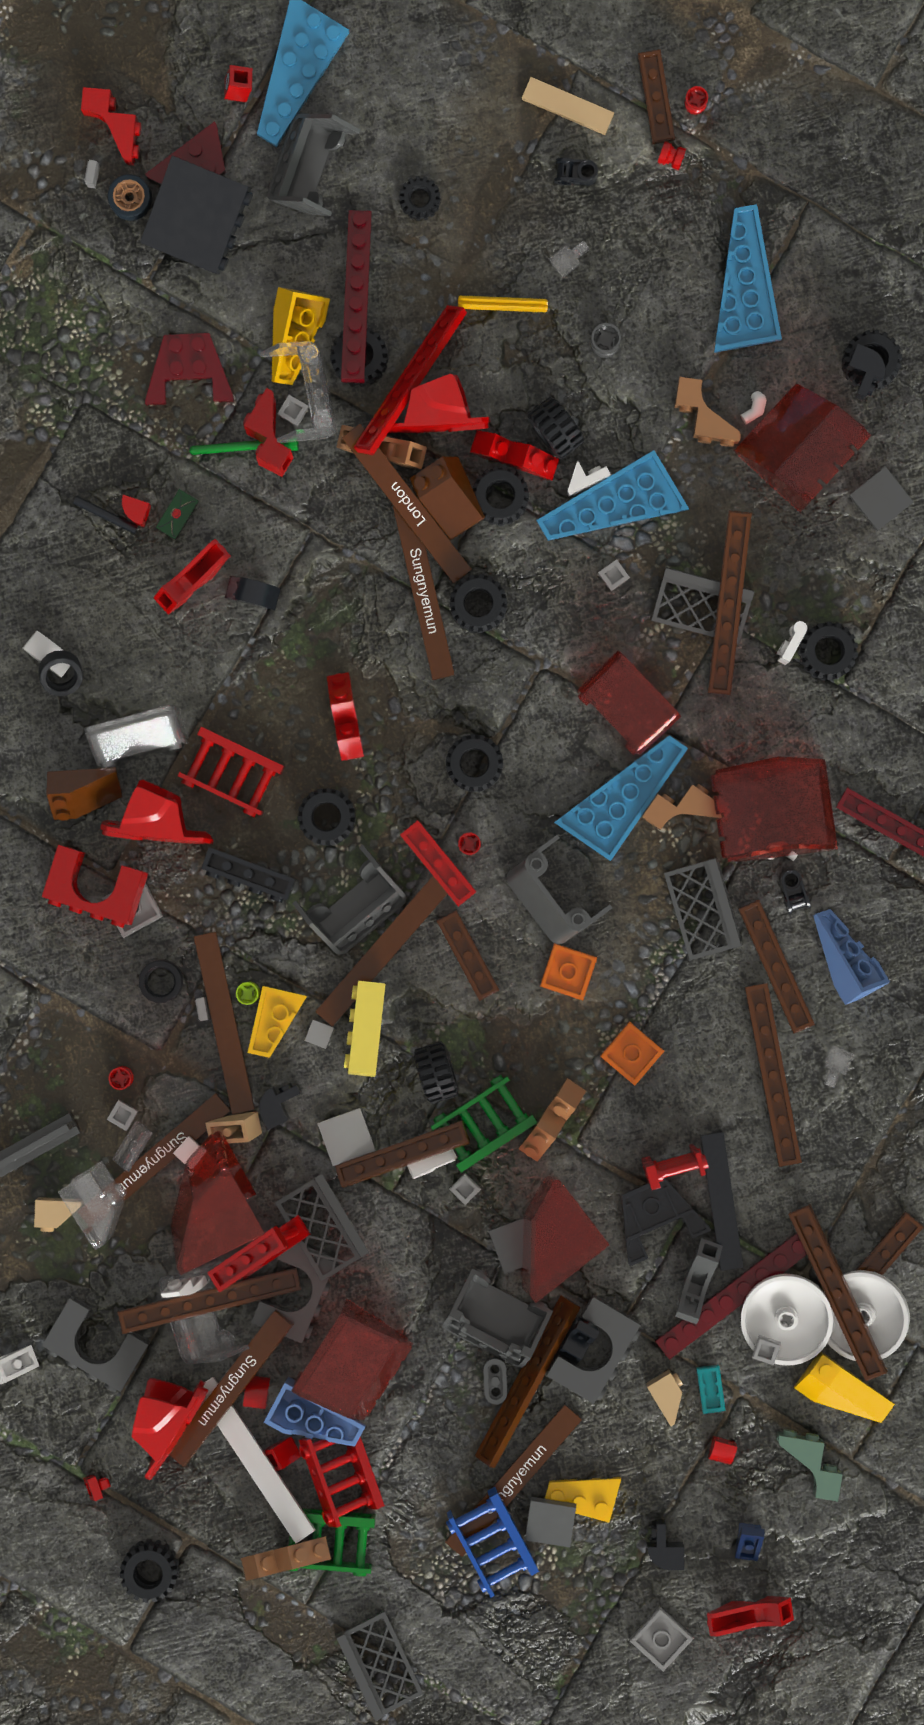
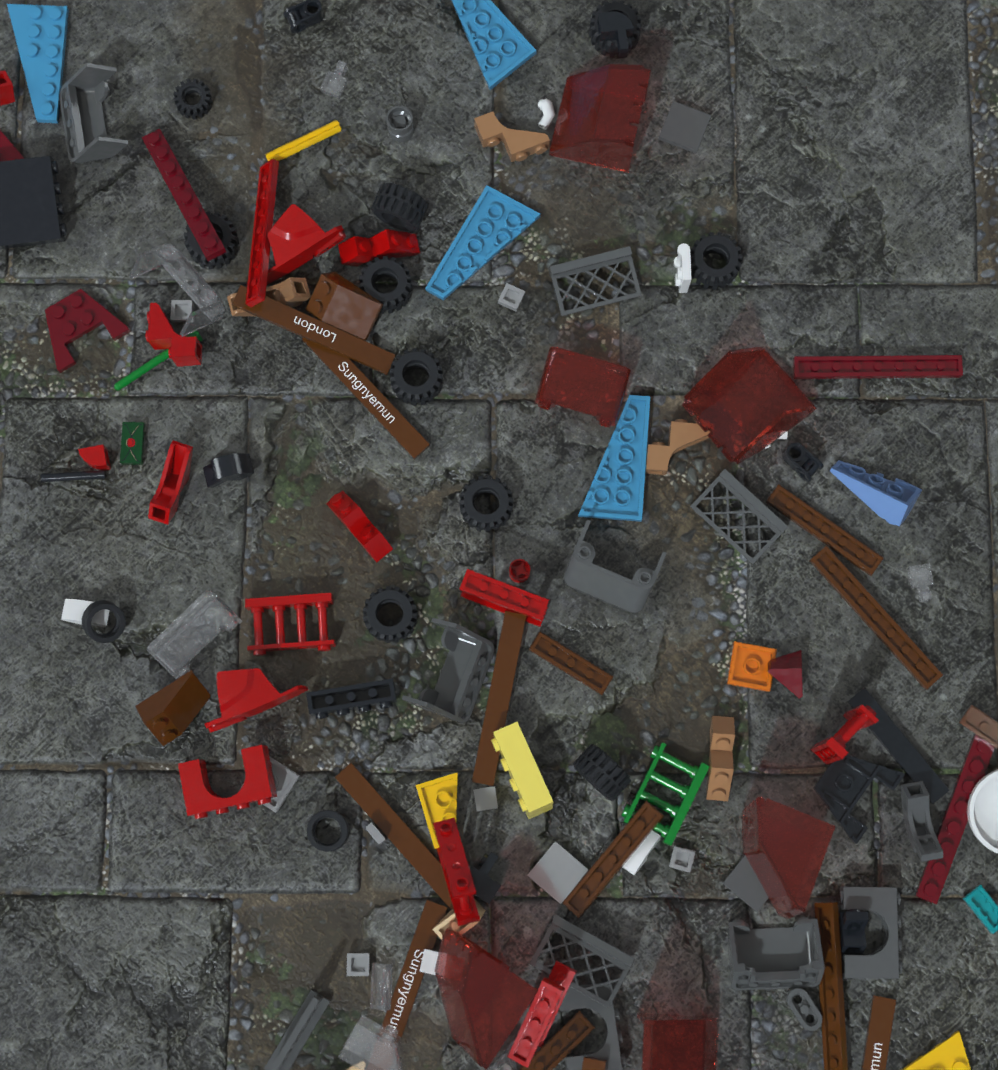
camera: 30 degrees left, 10 degrees down
(121, 1077) = (336, 934): red wheel -> none
(245, 991) = (406, 798): lime wheel -> none
(253, 1087) = (456, 871): none -> red fence
(295, 319) = (144, 233): yellow wedge -> none
(568, 971) = (660, 629): orange tile -> none
(582, 482) = (444, 239): white slope -> none
(661, 1078) = (788, 671): none -> dark red slope
(667, 1394) = (953, 934): tan slope -> none
(729, 602) = (615, 264): reddish brown tile -> none

